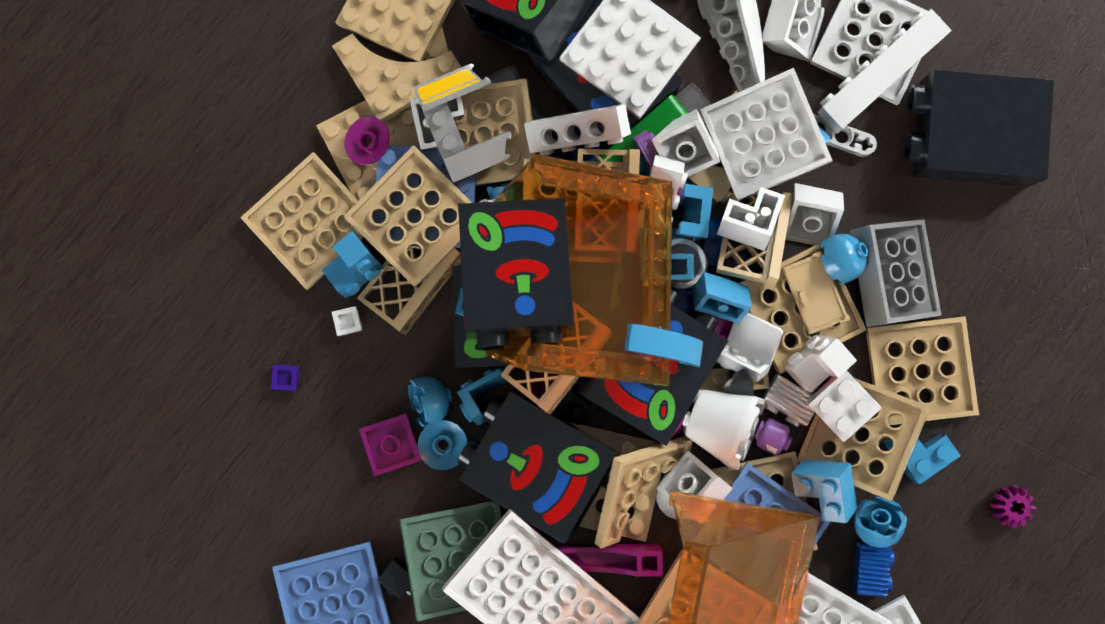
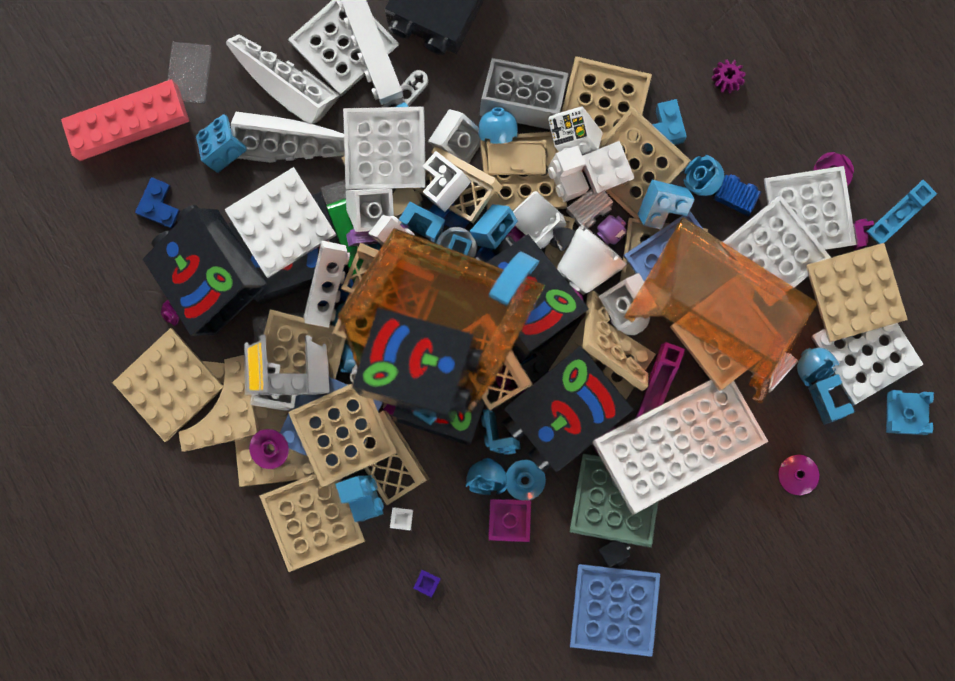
camera: 65 degrees left, 5 degrees down
(875, 349) = (575, 129): none -> white slope

